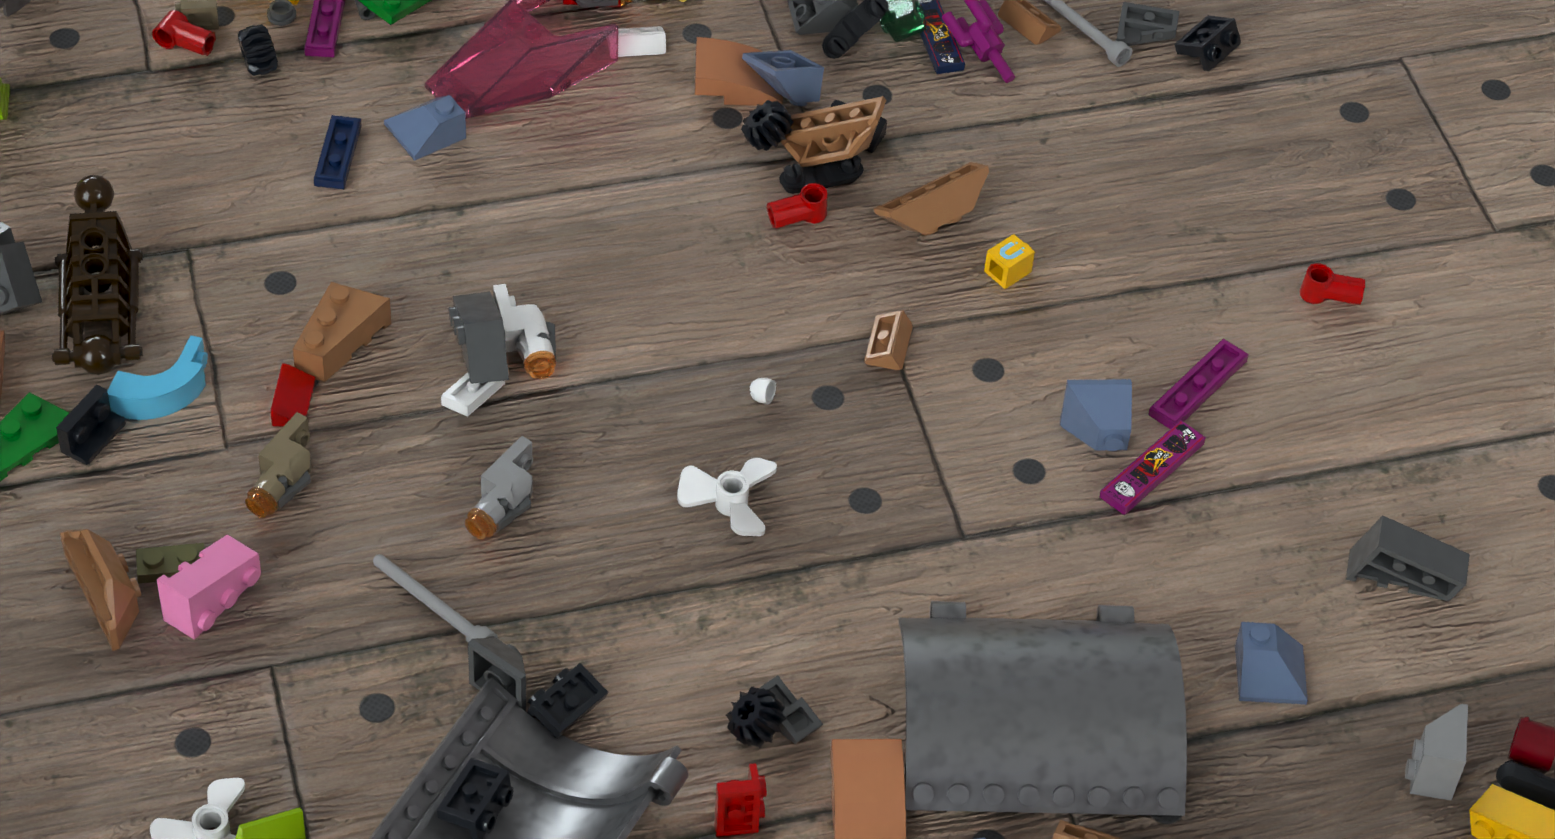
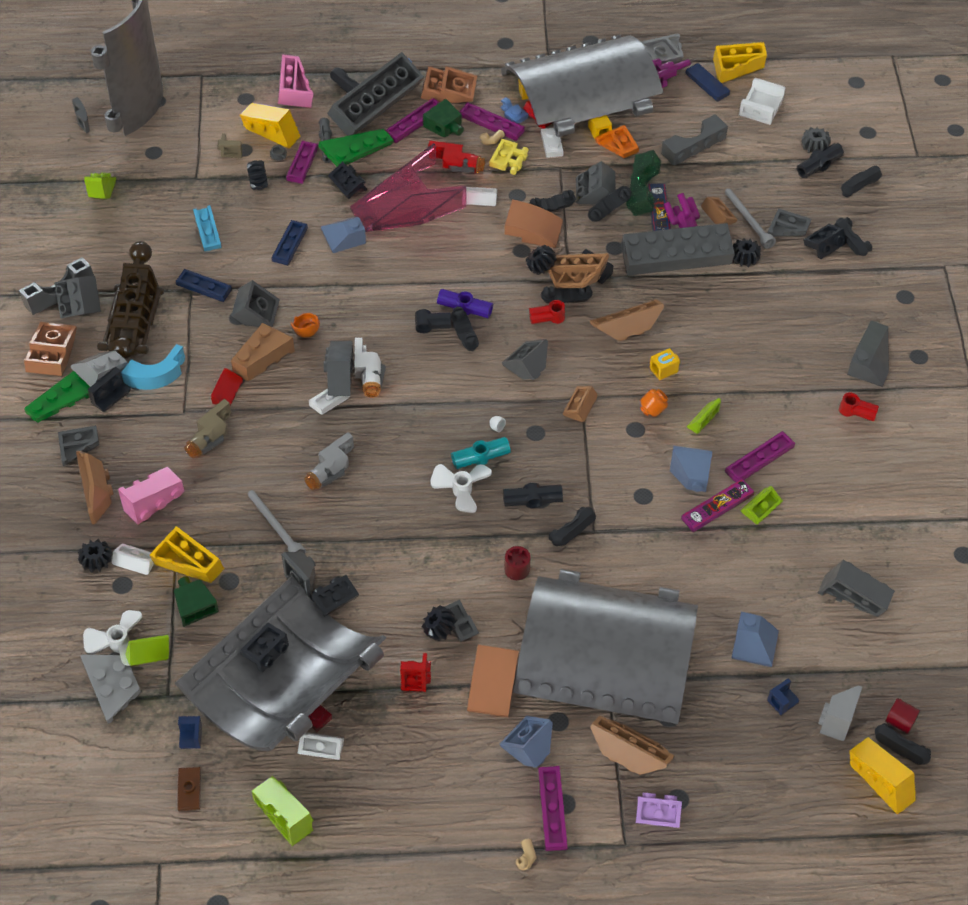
camera: 15 degrees right, 5 degrees up
(51, 516) = (77, 440): none -> dark grey wing
(63, 389) = (99, 365): none -> light grey slope
(135, 699) = (95, 555): none -> black gear
(164, 560) = (127, 475): olive plate -> none
(176, 30) = (217, 157): red piece -> none
(192, 147) = (207, 229): none -> medium azure hinge
(203, 695) = (132, 559): none -> white slope
(208, 238) = (203, 285): none -> dark blue tile
(299, 676) = (186, 556): none -> yellow wedge
(306, 257) = (255, 305): none -> dark grey slope
(328, 747) = (194, 601): none -> dark green torso
(402, 278) = (305, 325): none -> orange hair
(409, 42) = (346, 180): none -> black bracket
(604, 246) = (426, 321): none -> black piece
(659, 209) = (466, 301): none -> dark purple piece
(668, 251) = (464, 329): none -> black piece
(749, 439) = (480, 452): none -> teal piece
(765, 34) = (556, 202): none -> black piece
(787, 283) = (528, 359): none -> dark grey slope
(788, 74) = (562, 229): sand blue slope -> none
(852, 494) = (532, 495): none -> black piece
(857, 603) = (517, 563): none -> dark red piece
(945, 519) = (570, 530): none -> black piece
(981, 82) = (677, 249): none -> dark grey brick
(1010, 322) = (654, 402): none -> orange head
(1090, 74) = (746, 252): none -> black gear
(1094, 332) = (705, 416): none -> lime slope
(1221, 456) = (762, 505): none -> lime slope
(1253, 35) = (853, 240): none -> black piece
(1329, 206) = (872, 355): none -> dark grey wedge
(1337, 748) = (782, 697): none -> dark blue panel

